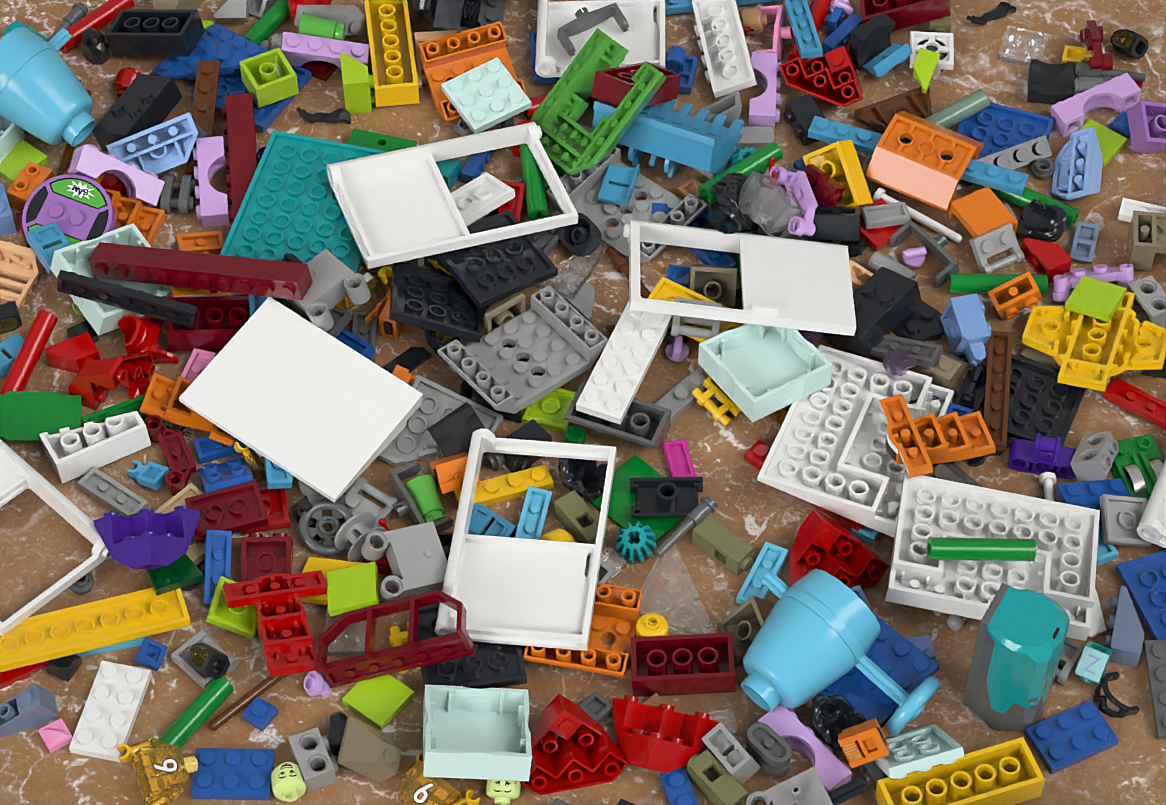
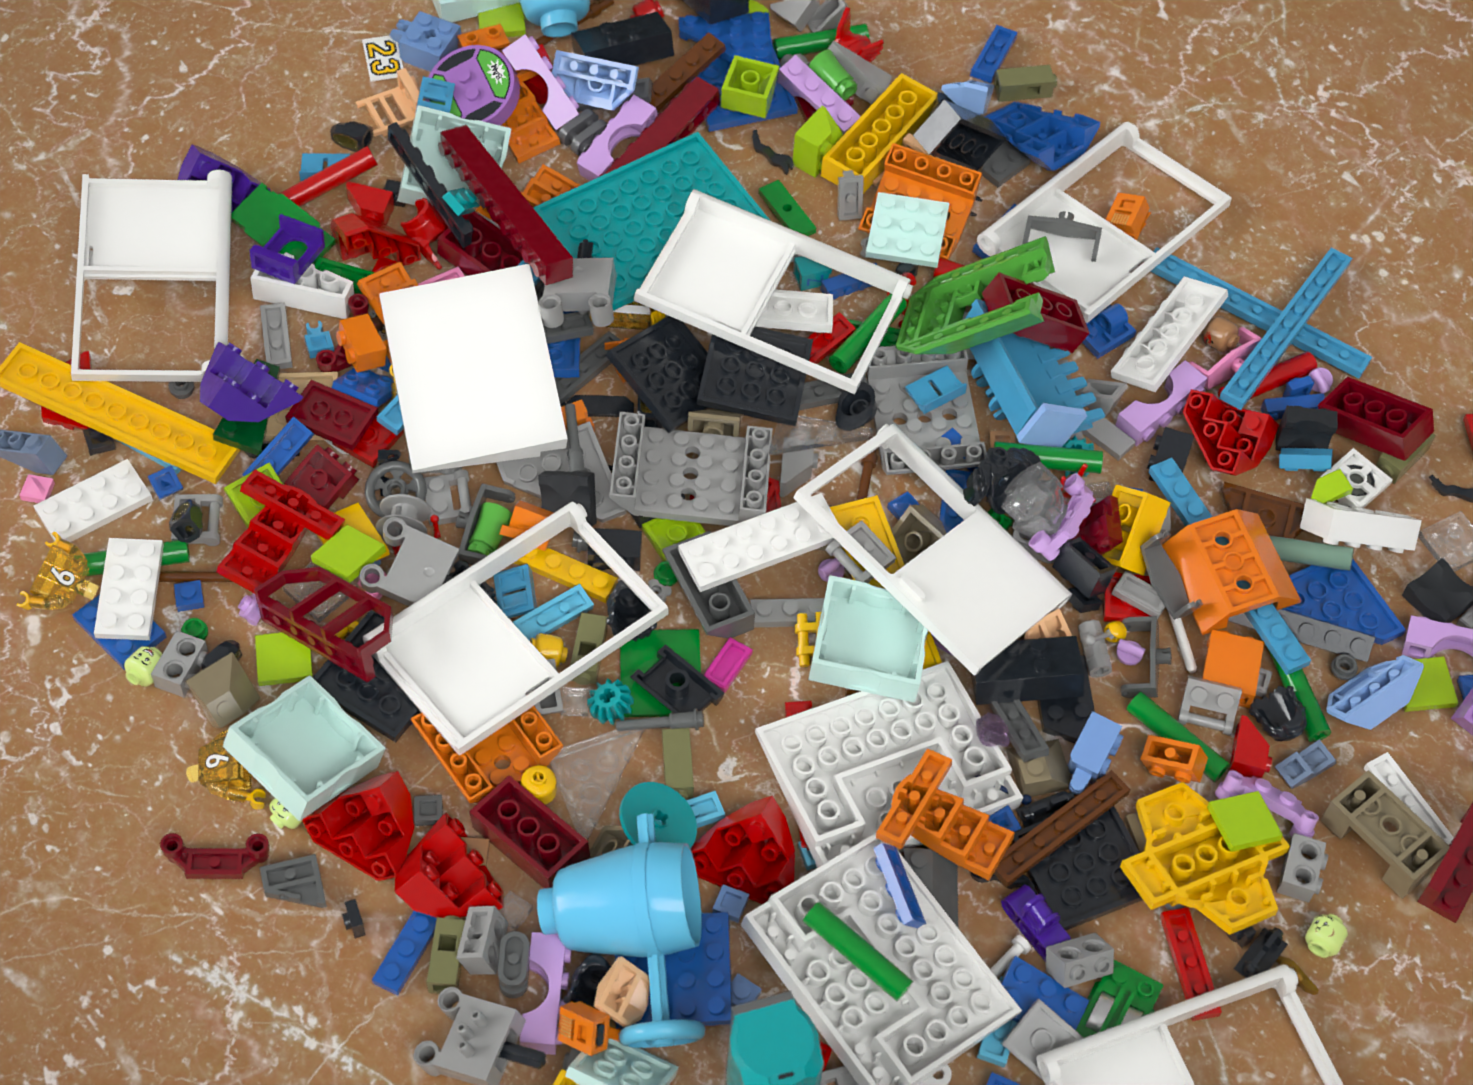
camera: 40 degrees right, 5 degrees up
(68, 438) = (280, 266): none -> dark purple panel
(167, 290) = (461, 201): none -> teal plate
(194, 445) = (361, 343): none -> orange brick
(218, 739) = (129, 589): none -> white plate
(291, 728) = (195, 628): none -> green plate
(419, 102) = (850, 196): none -> light grey plate
(432, 403) = (575, 453): none -> dark grey pin
(728, 147) = (1051, 425): none -> light blue tile
(744, 582) = (667, 805): none -> teal piece
(860, 701) = (623, 993): none -> light nougat slope
(893, 248) = (1111, 630): none -> yellow hinge
(894, 192) = (1166, 578): none -> dark grey piece
(957, 494) = (899, 886): none -> plate
(965, 75) = (1360, 526): none -> white wedge

